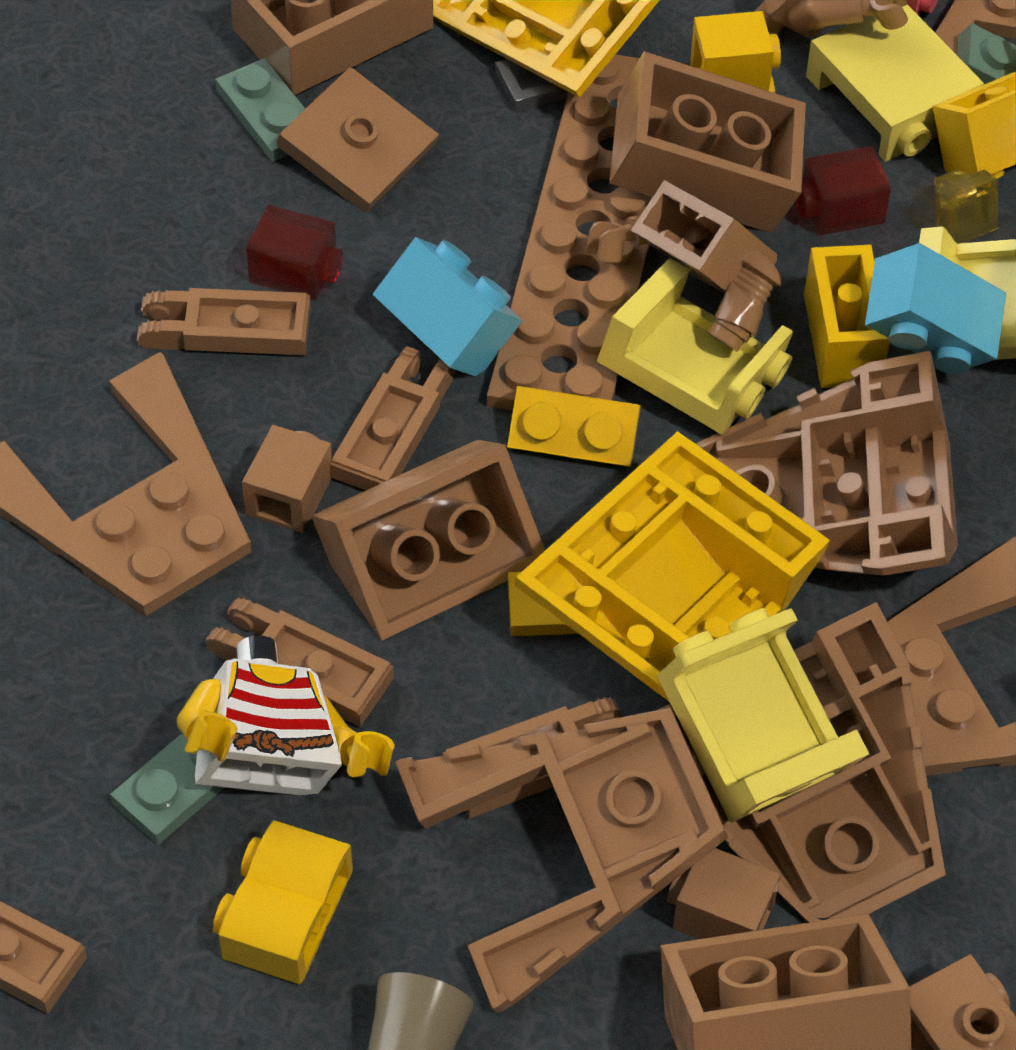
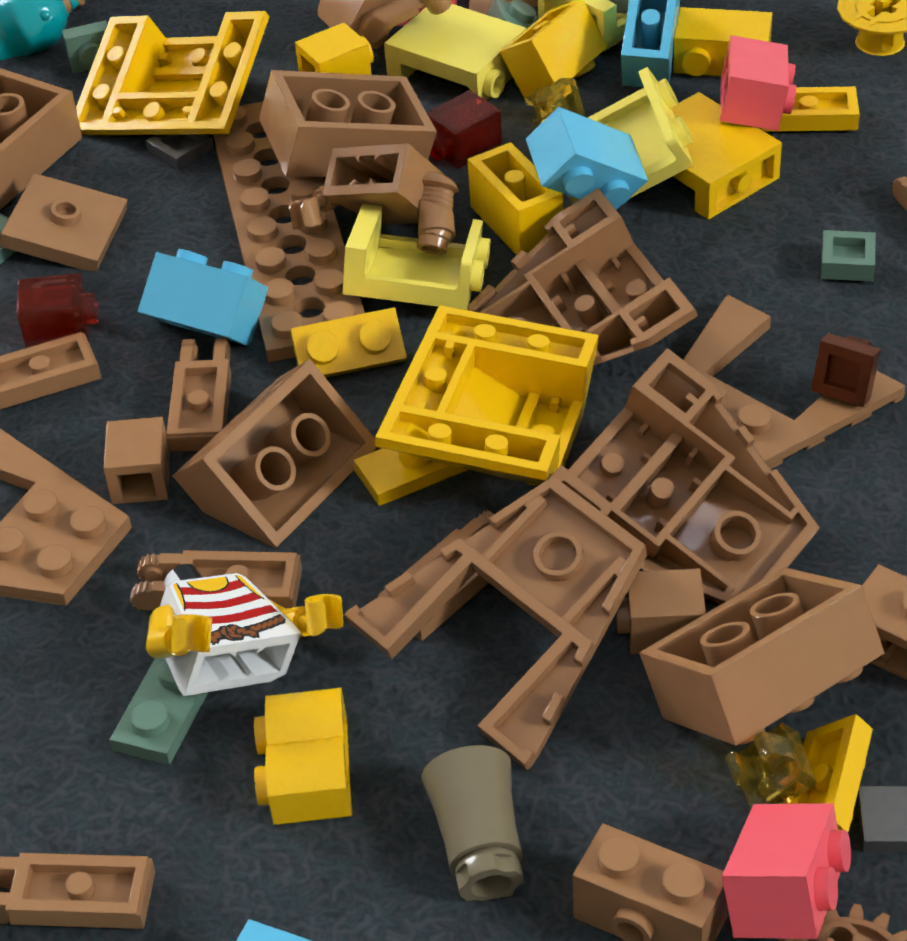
camera: 20 degrees left, 10 degrees down
(754, 714) = (618, 459): light yellow panel -> none

